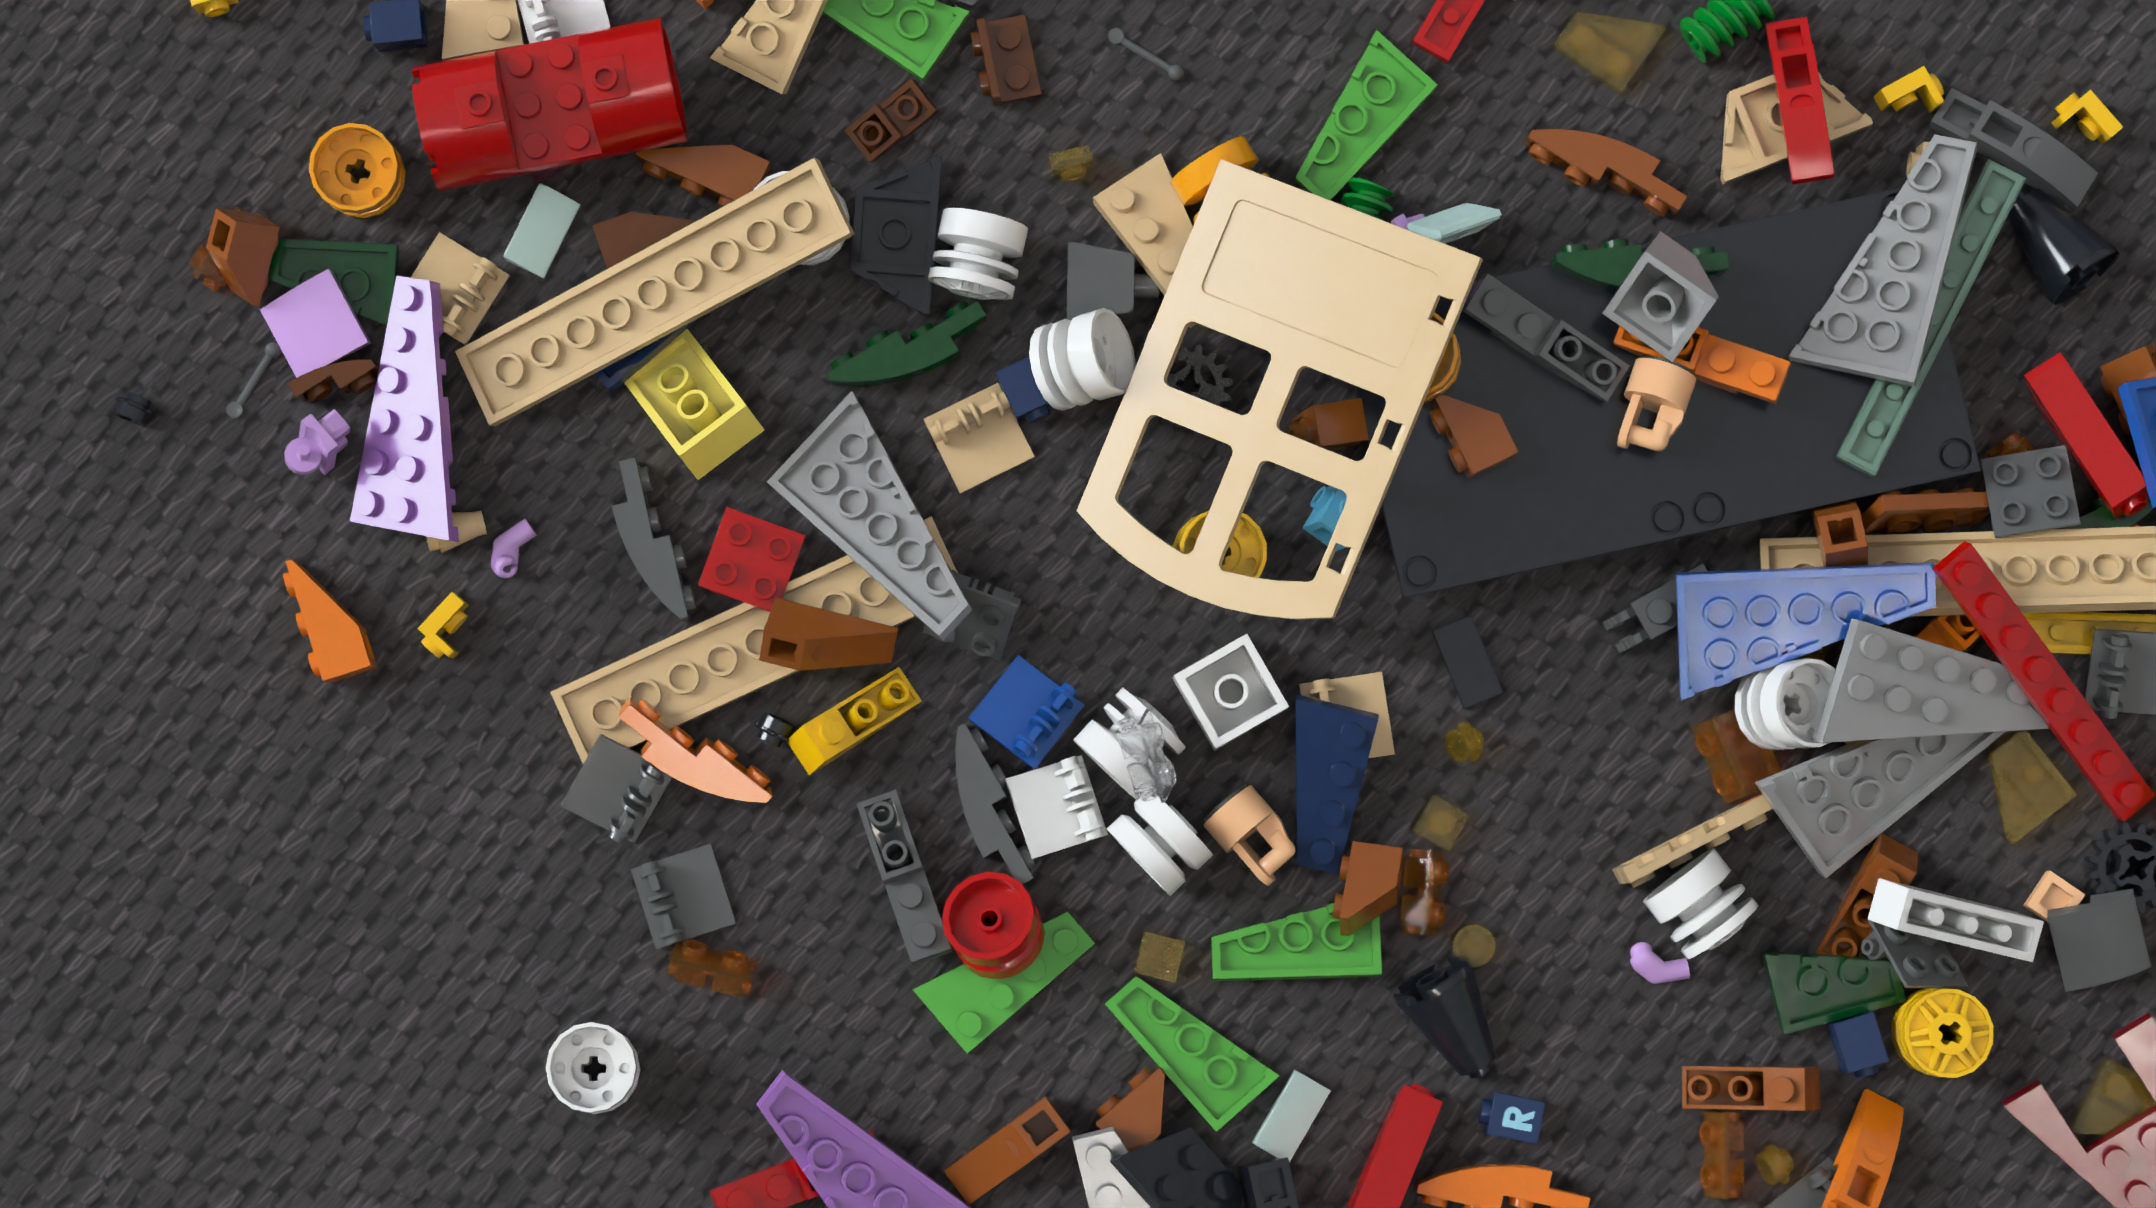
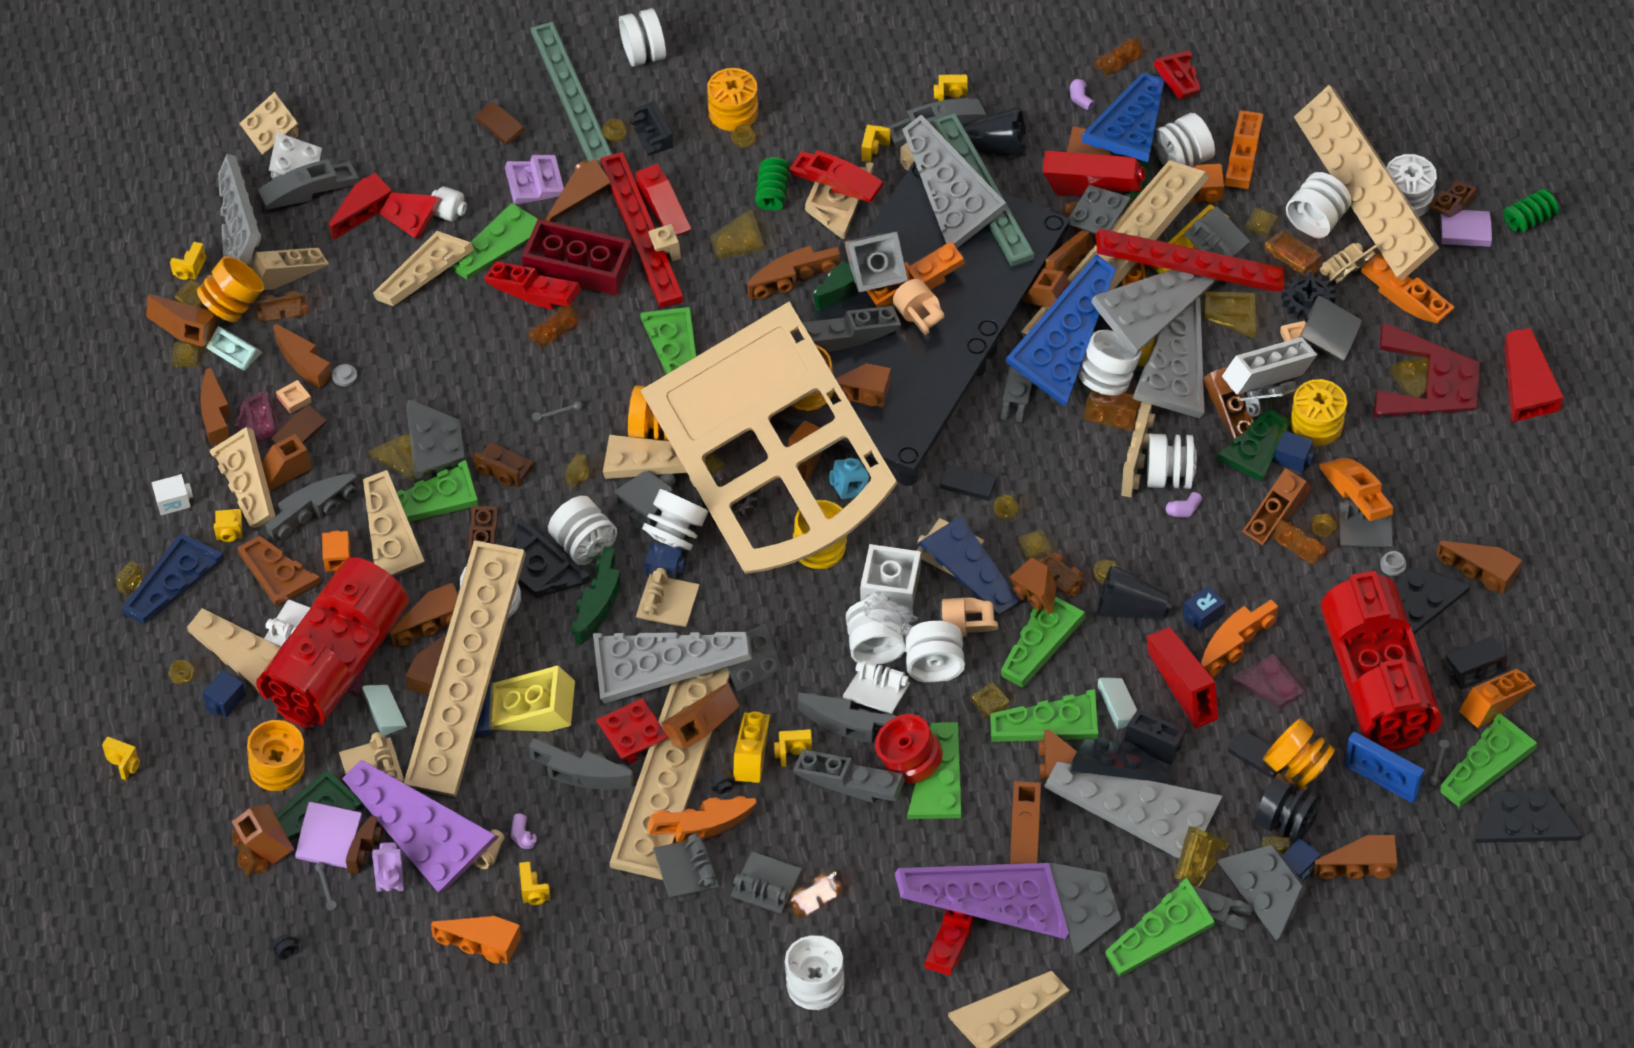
camera: 50 degrees left, 30 degrees down
(899, 773) = (793, 743): none -> yellow bracket
(1027, 711) = (818, 669): blue hinge -> none

